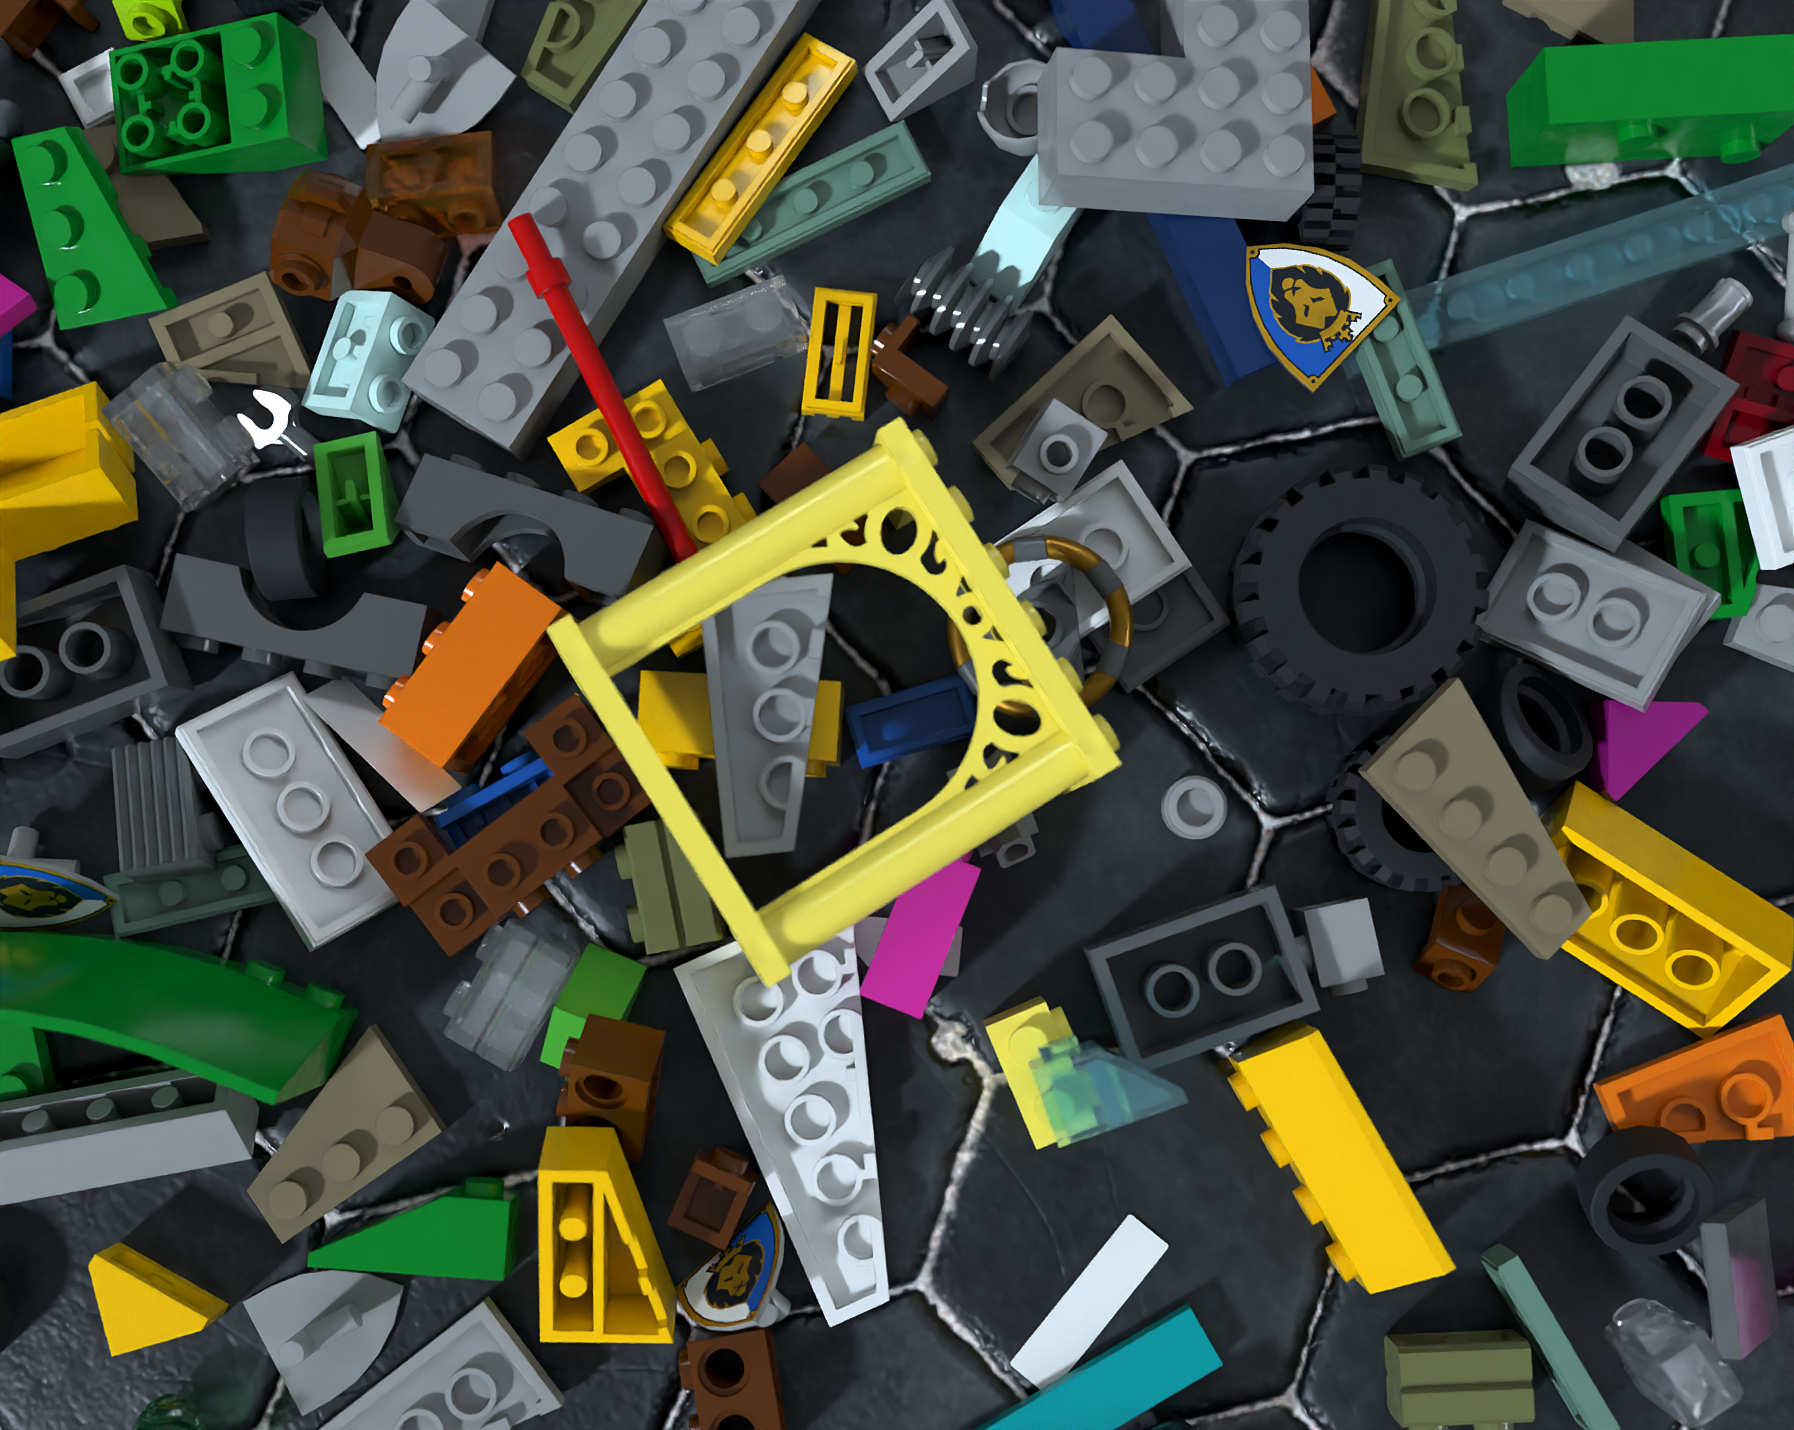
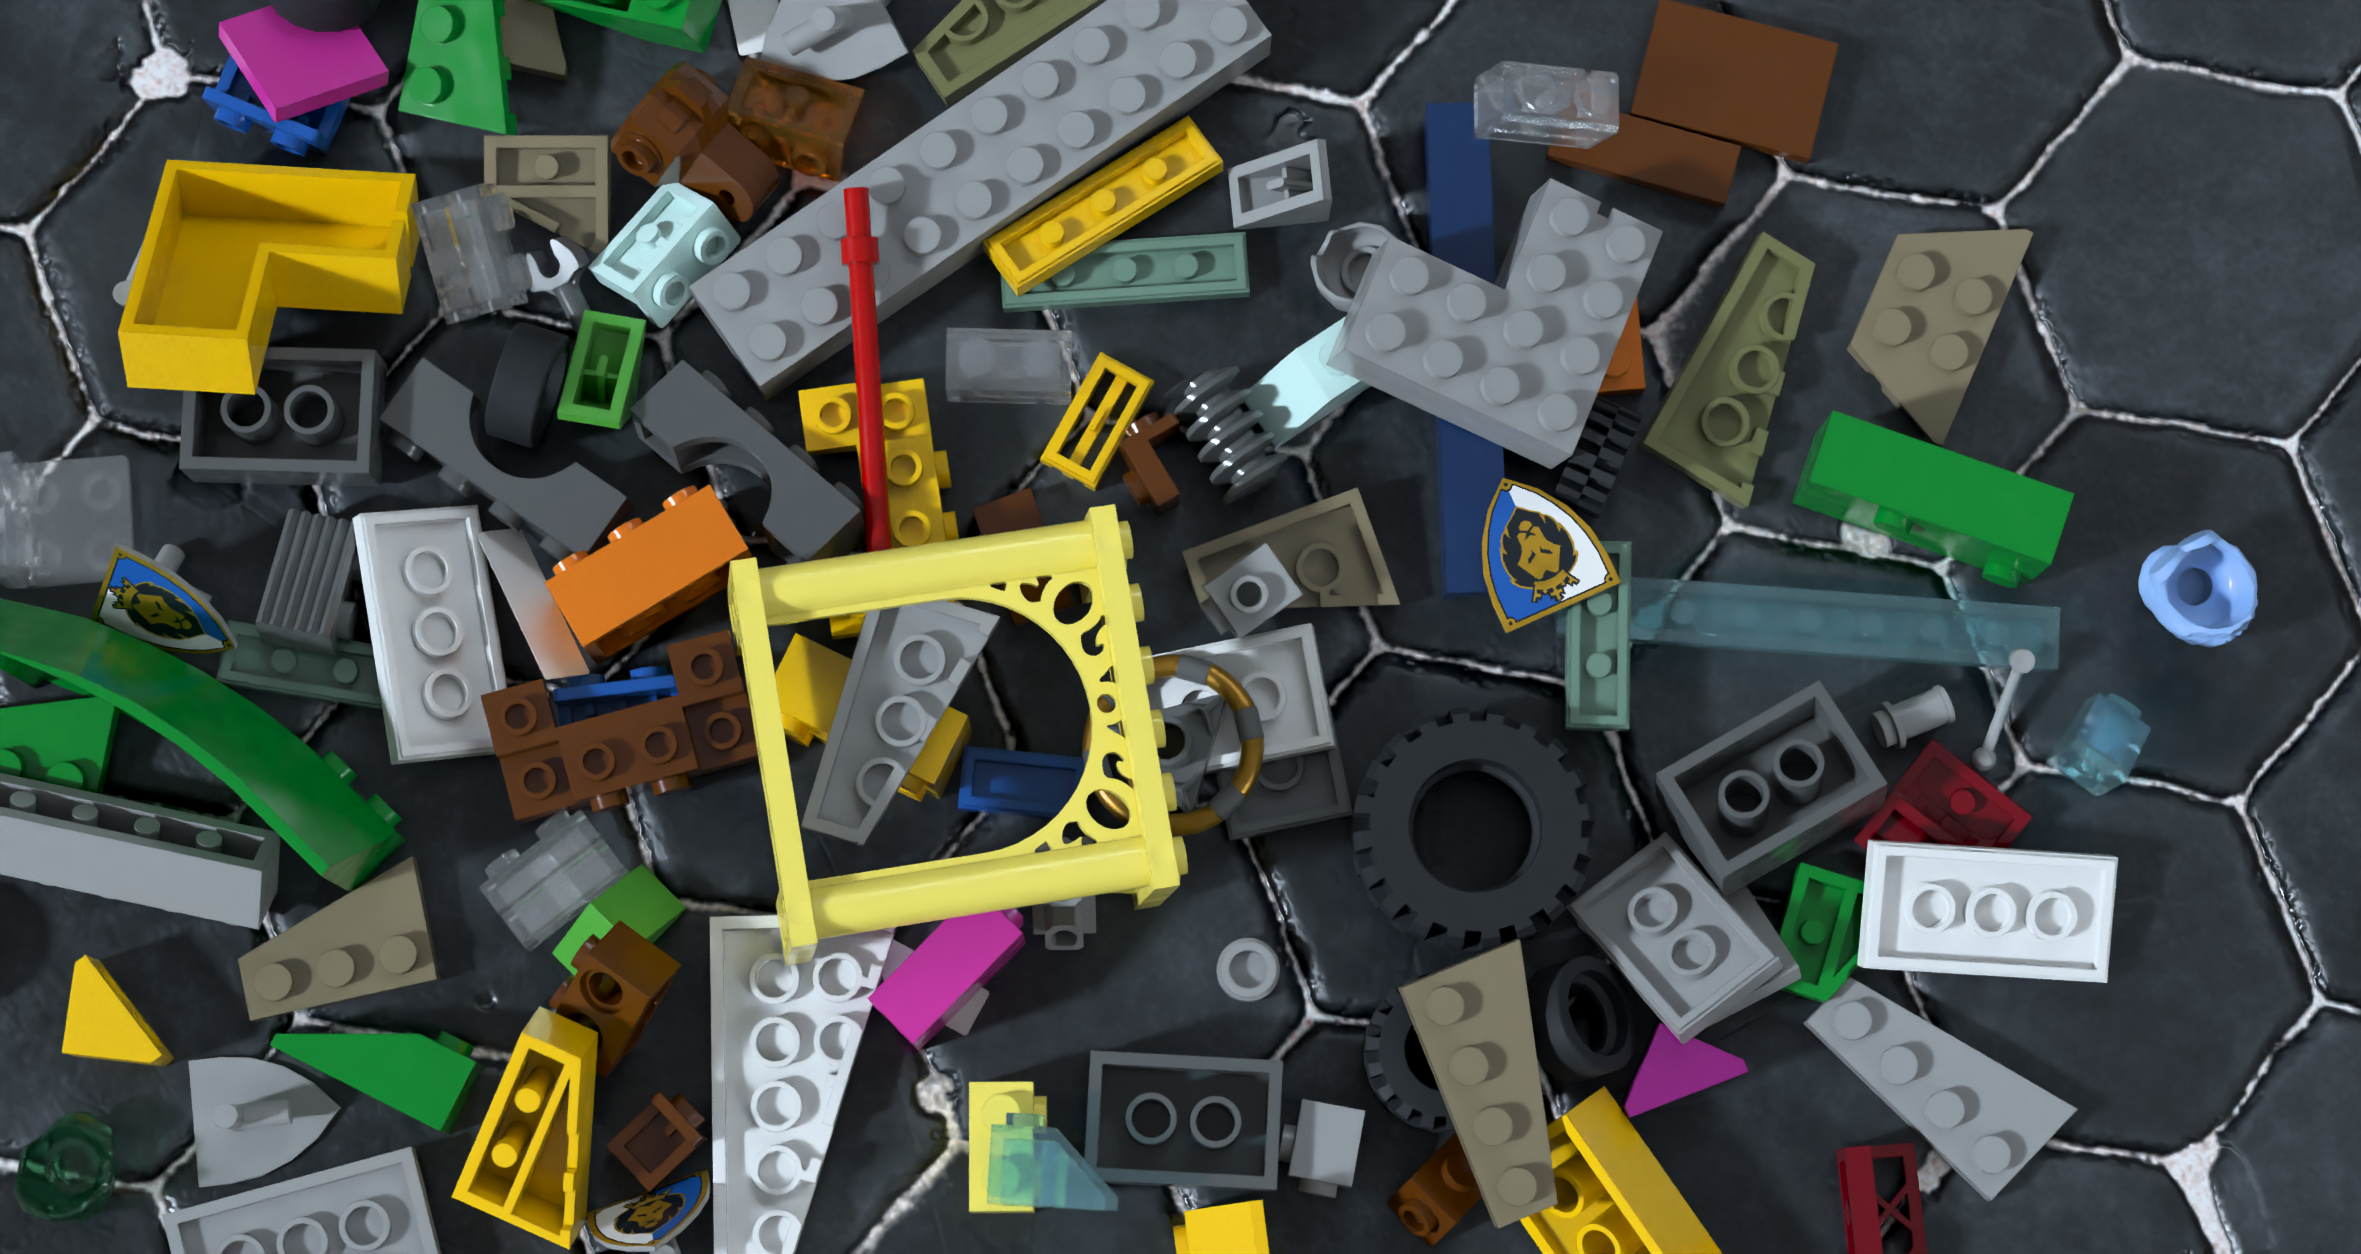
camera: 15 degrees right, 5 degrees down
(670, 898) = (737, 847): olive brick -> none

